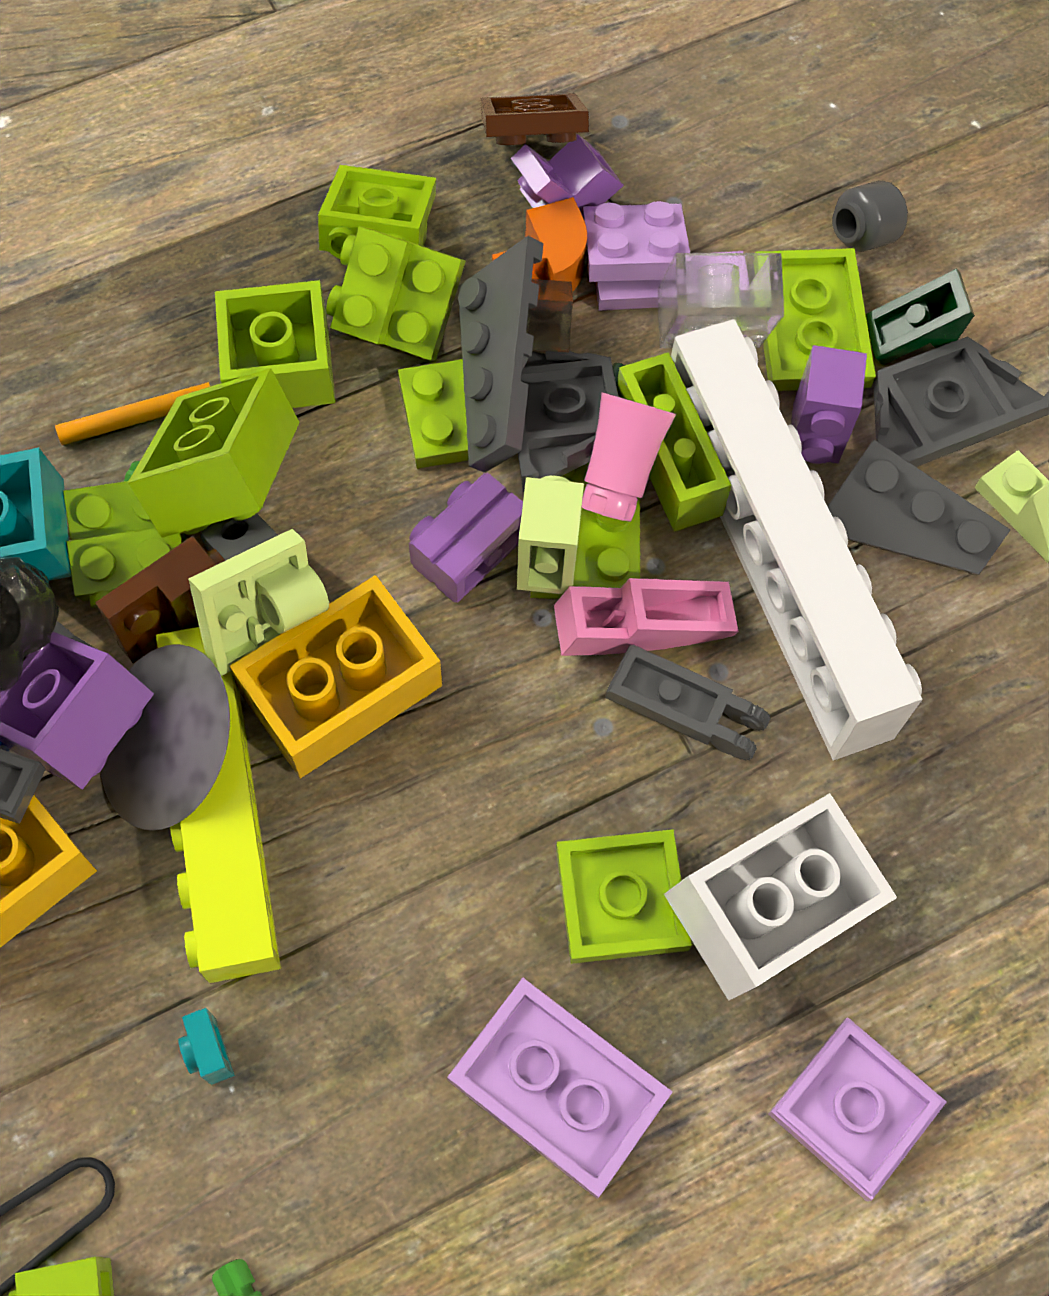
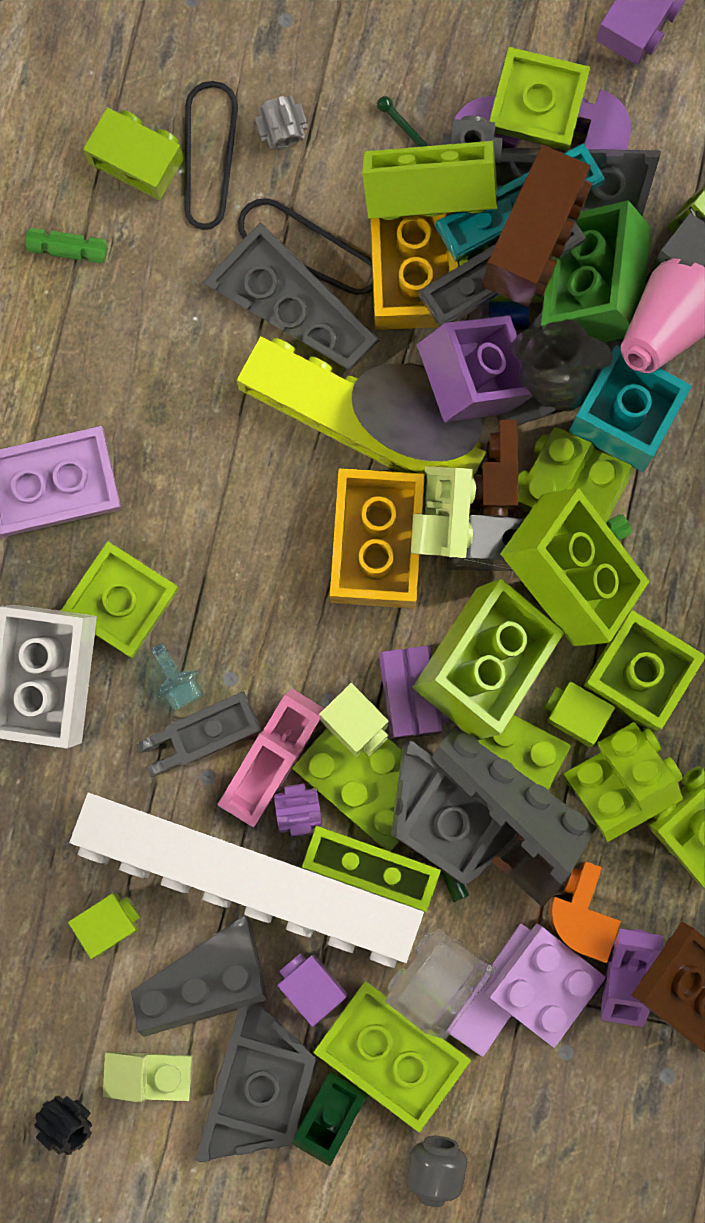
camera: 135 degrees right, 15 degrees up
(16, 1036) = (304, 221): none -> black piece
(120, 417) = (672, 558): light orange bar -> none
(123, 1009) = (283, 291): none -> dark grey wing
(204, 1047) = (222, 315): teal plate -> none
(362, 380) = (578, 713): none -> lime brick
(378, 472) = (488, 660): none -> lime brick
(623, 455) = (377, 820): bright pink plant -> none
(658, 757) = (180, 686): none -> clear light blue piece
(676, 549) = (297, 810): none -> medium lavender gear
(947, 641) = (105, 924): none -> lime brick

